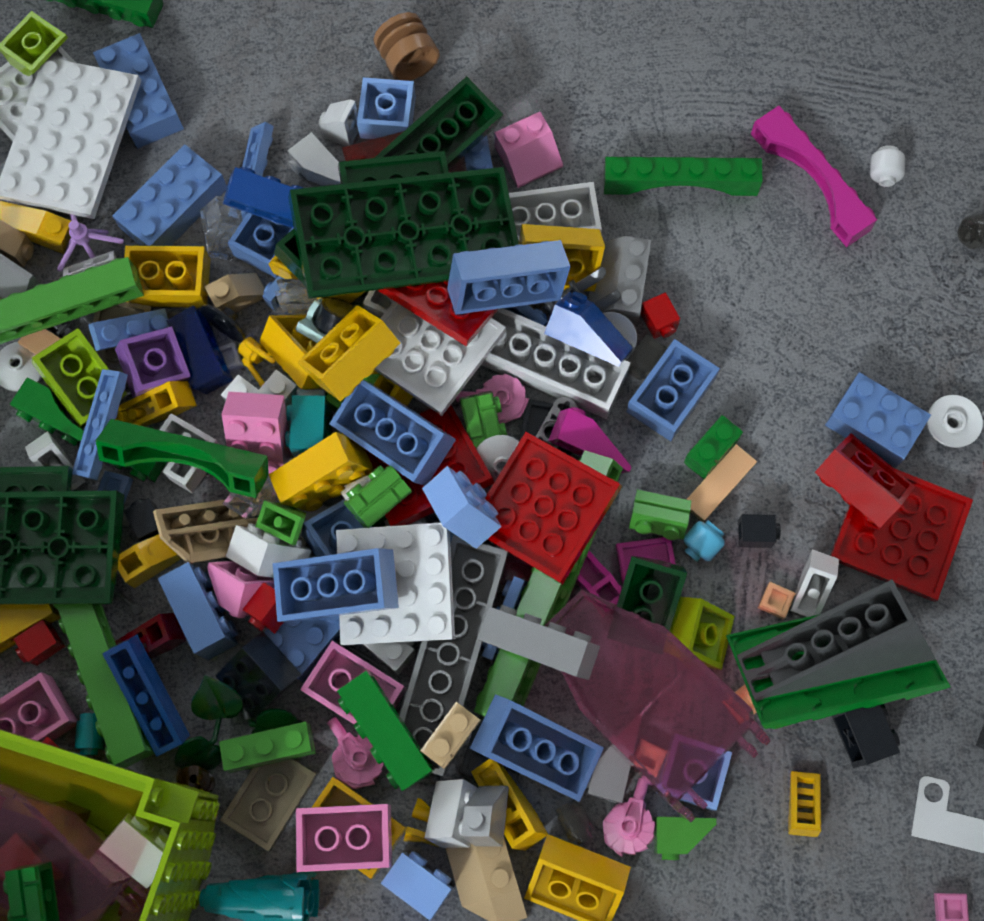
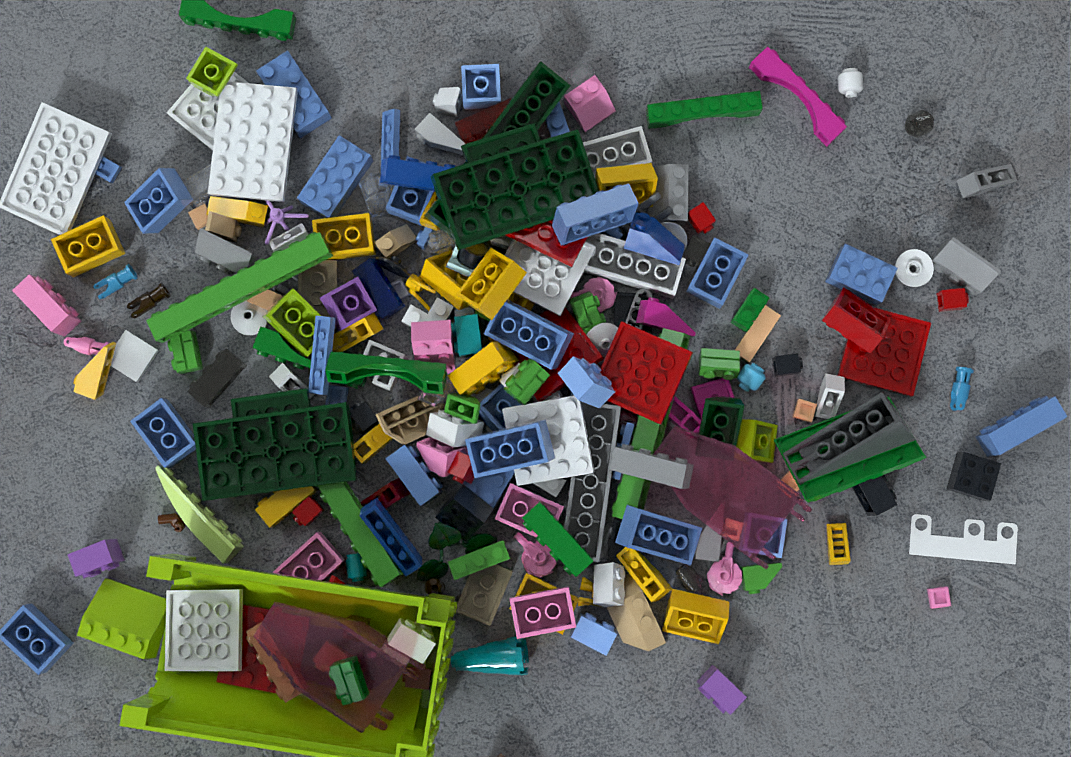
camera: 10 degrees left, 10 degrees up
(109, 332) = (327, 281): medium blue plate -> none
(406, 47) = (488, 35): medium nougat wheel -> none
(450, 735) = (601, 536): tan brick -> none
(485, 816) = (632, 584): light grey slope -> none

